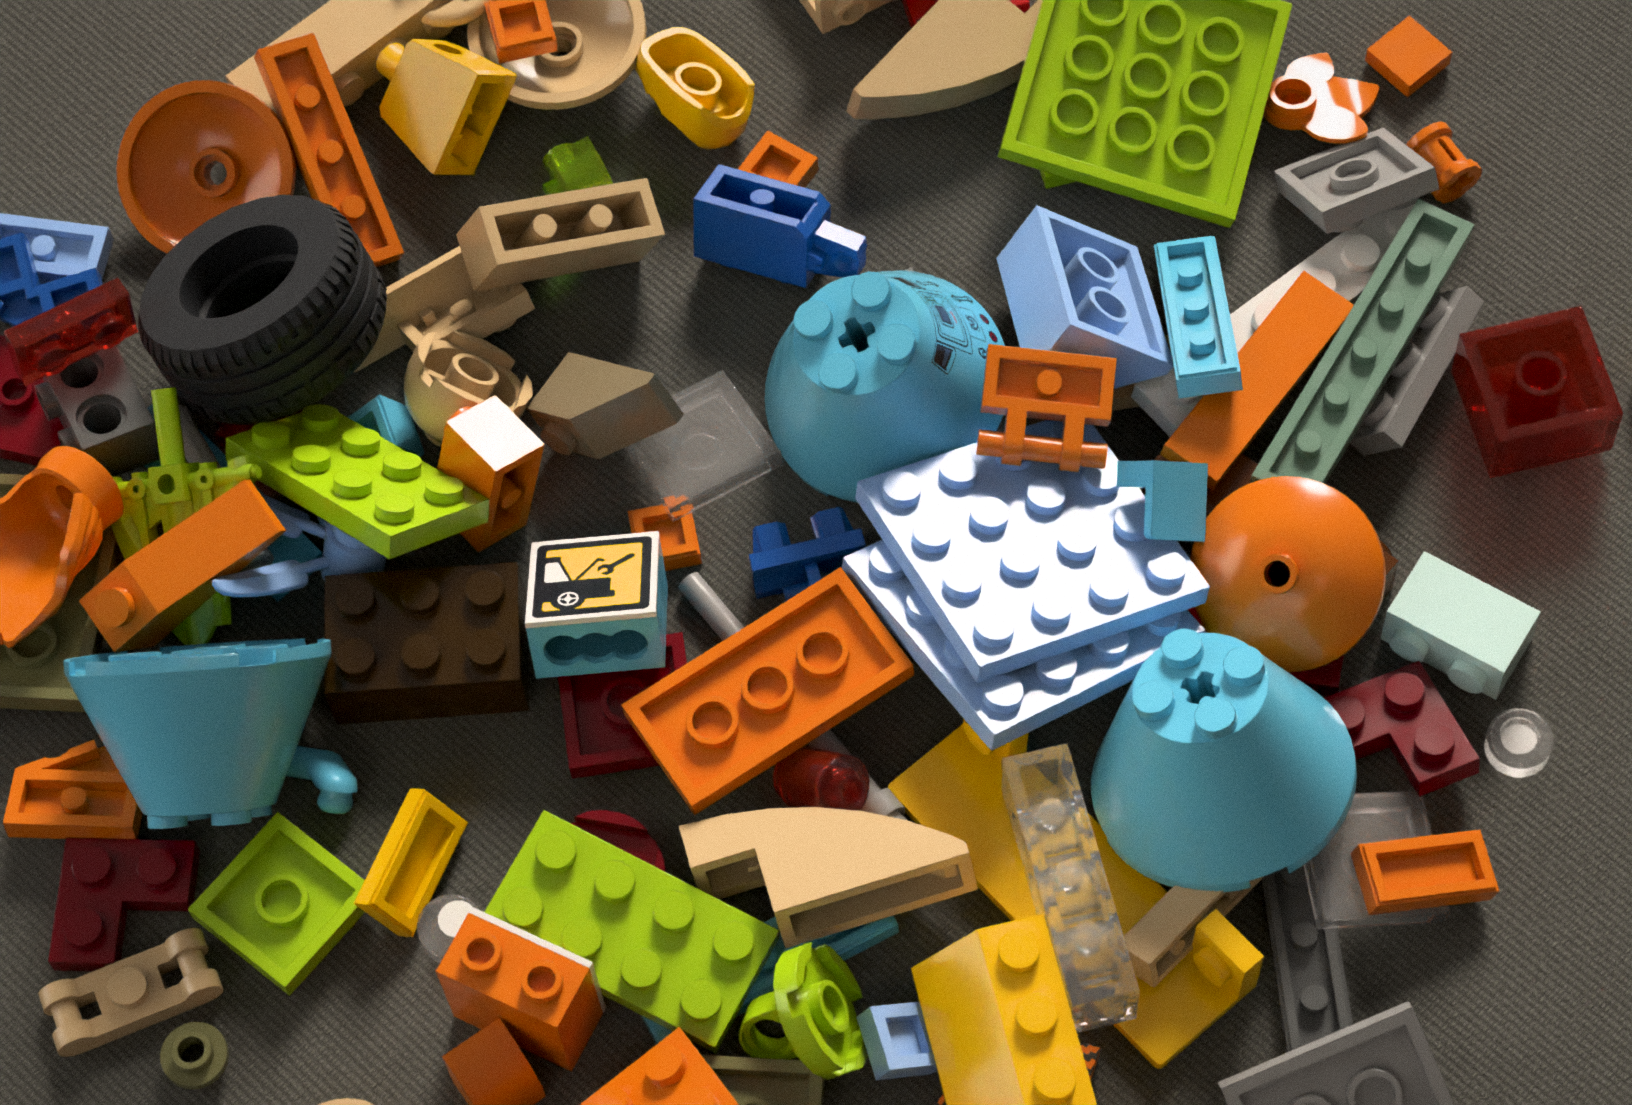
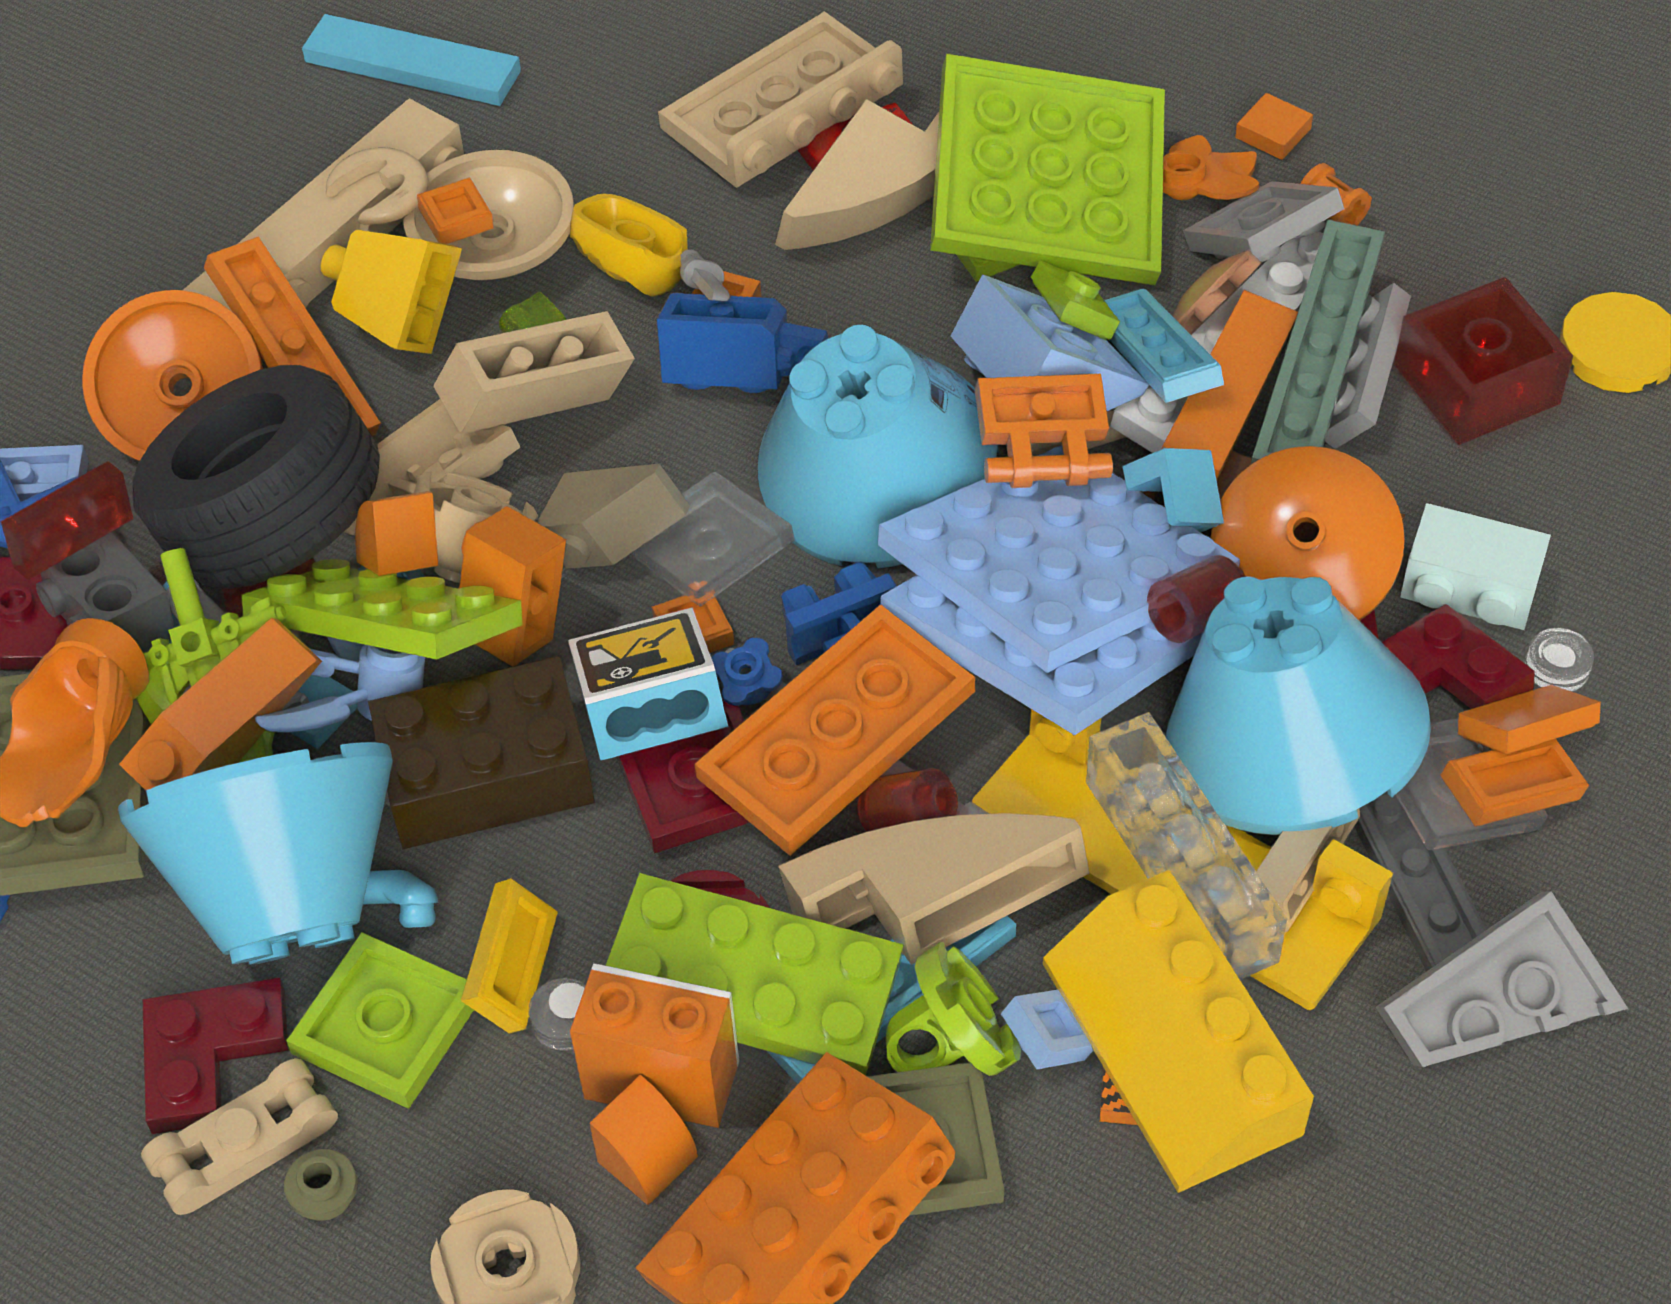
camera: 15 degrees left, 10 degrees down
(72, 798) = (145, 958): orange wing -> none
(387, 401) = (397, 534): none -> orange brick
(701, 624) = (749, 687): none -> blue plate
(758, 148) = (703, 275): none -> light grey piece
(1132, 242) = (1075, 300): none -> lime plate
(1137, 627) = (1186, 599): none -> clear red brick
(1271, 261) = (1214, 289): none -> nougat dish
(1459, 808) = (1528, 719): none -> orange tile

